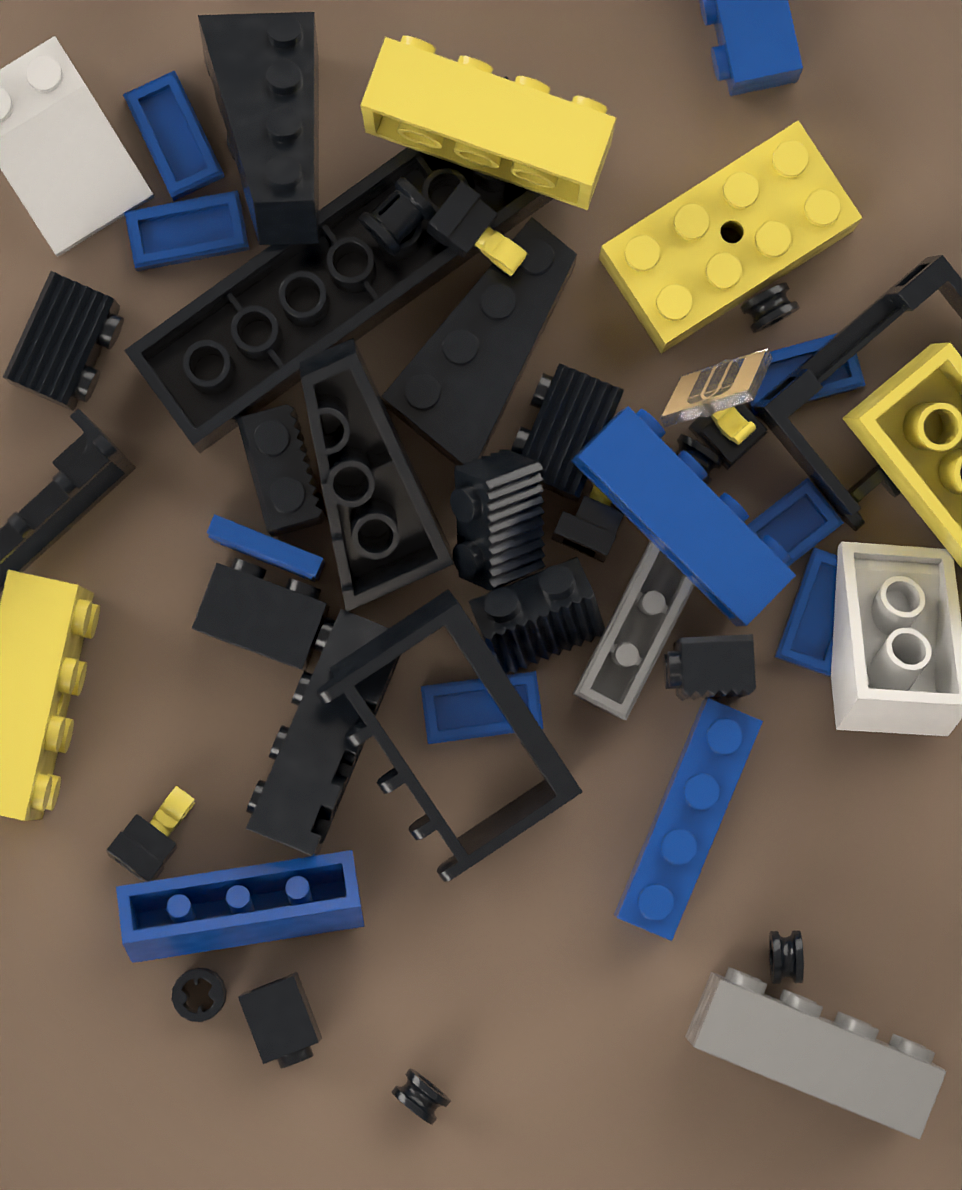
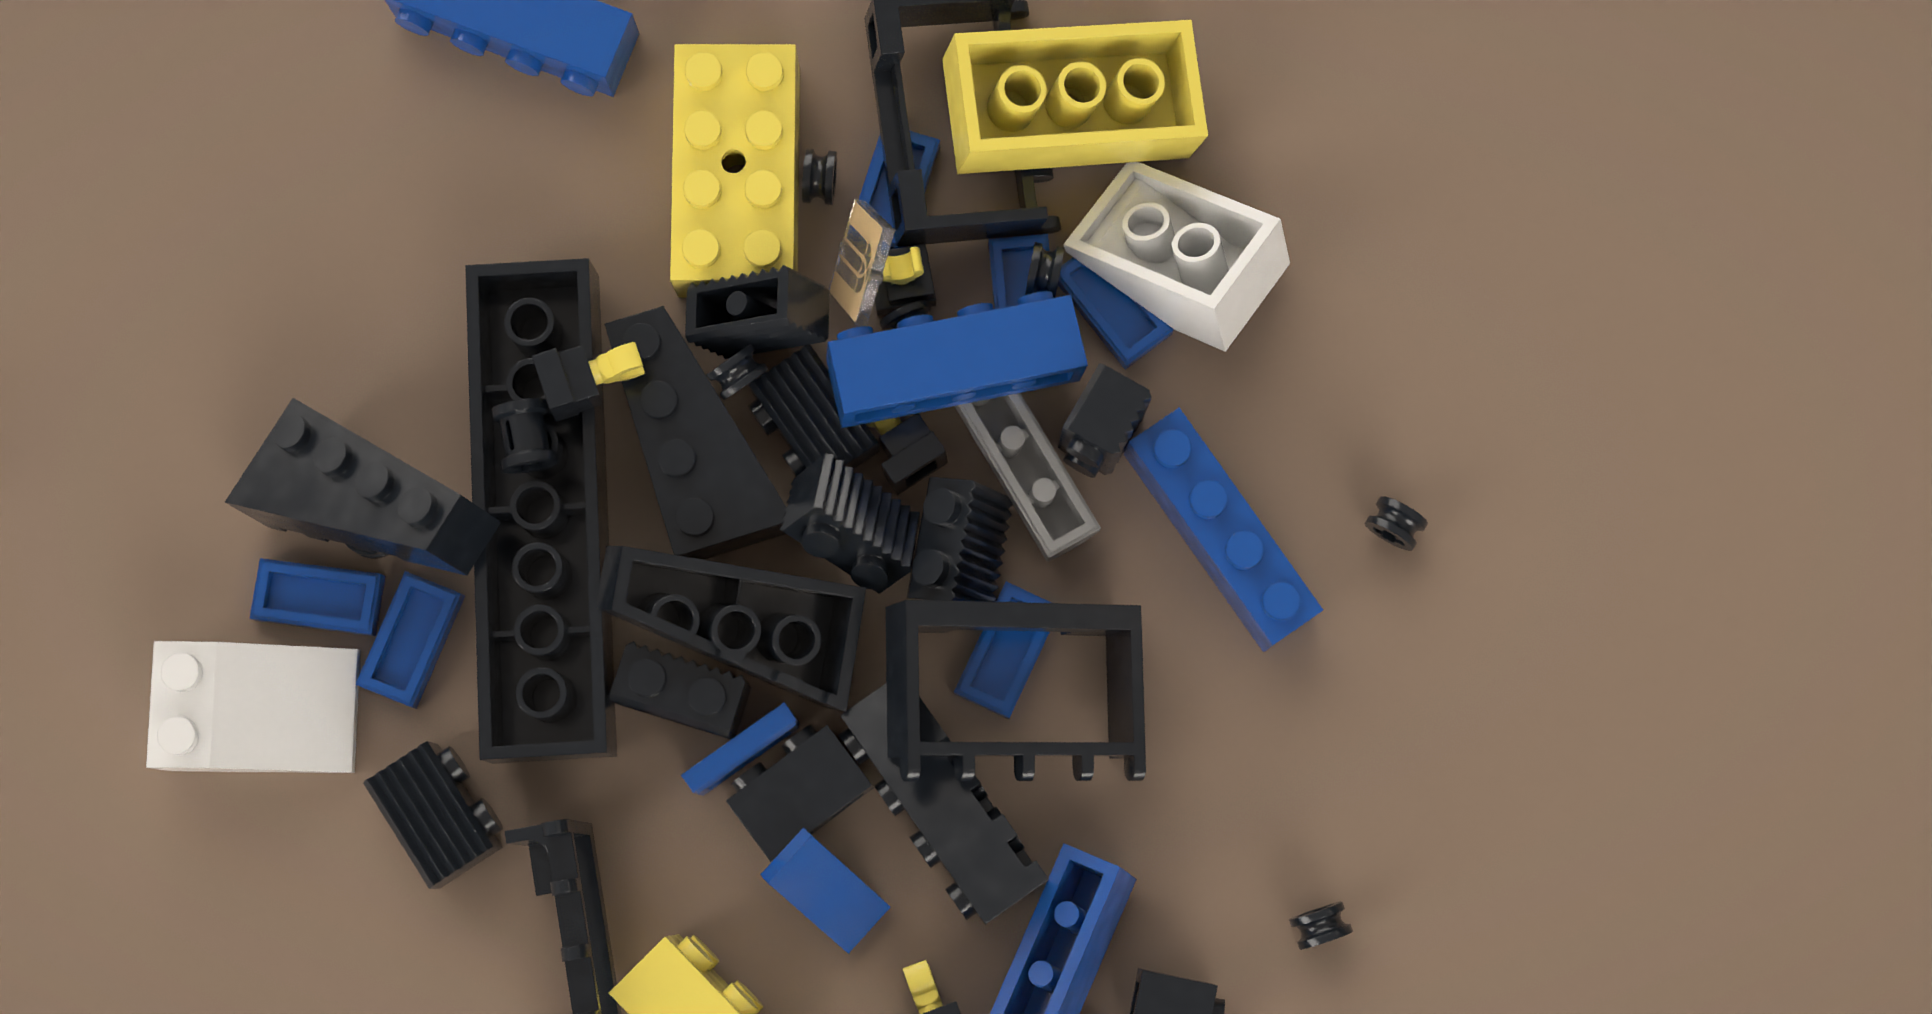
camera: 60 degrees left, 5 degrees down
(197, 686) = (825, 890): none -> blue tile
(487, 121) = (495, 299): light yellow brick -> none
(562, 347) = (737, 371): none -> black bush
(620, 332) = (760, 309): none -> black brick
(807, 540) = (1044, 270): none -> black bush
(816, 1055) = (1511, 541): light grey brick -> none

